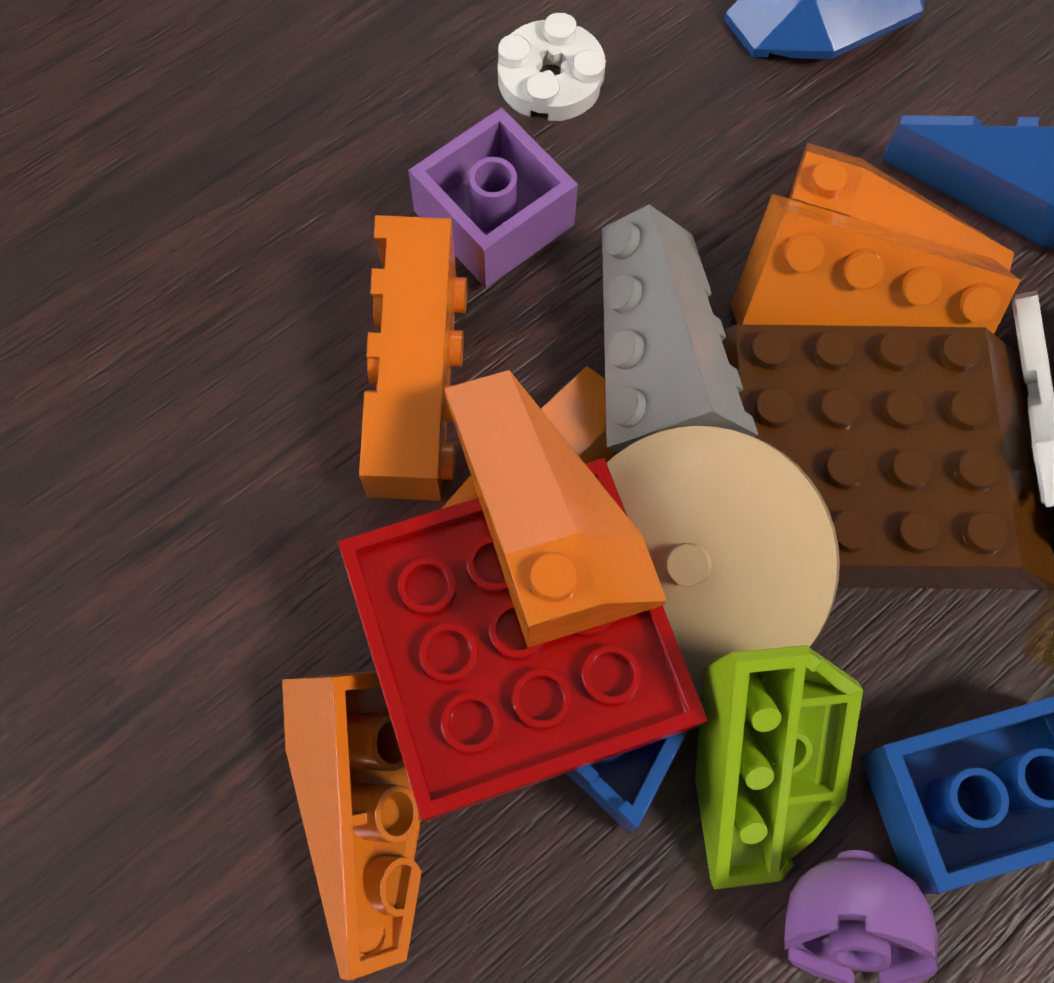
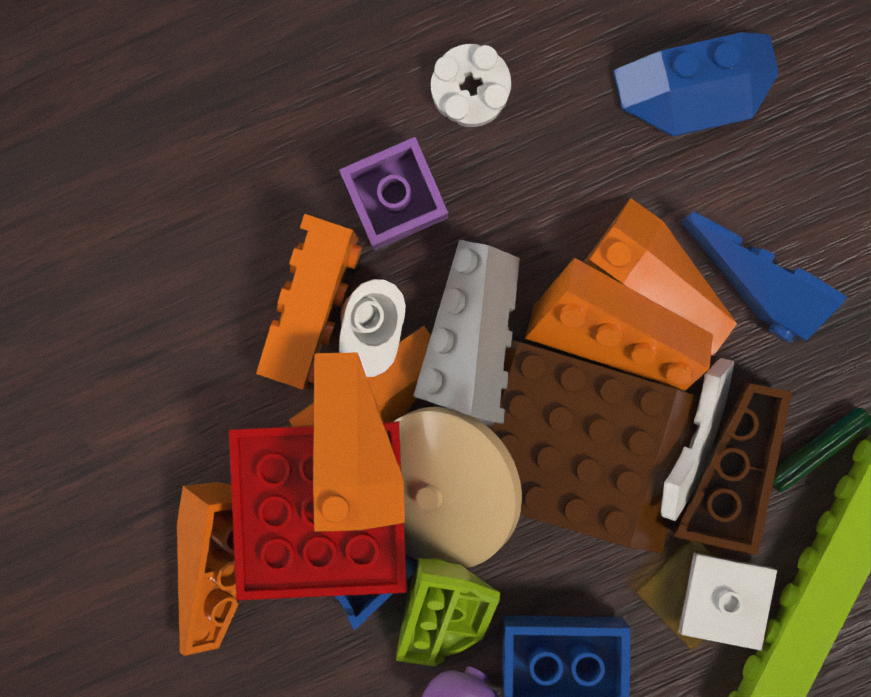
camera: 20 degrees right, 20 degrees up
(518, 340) = (373, 324): none -> white piece

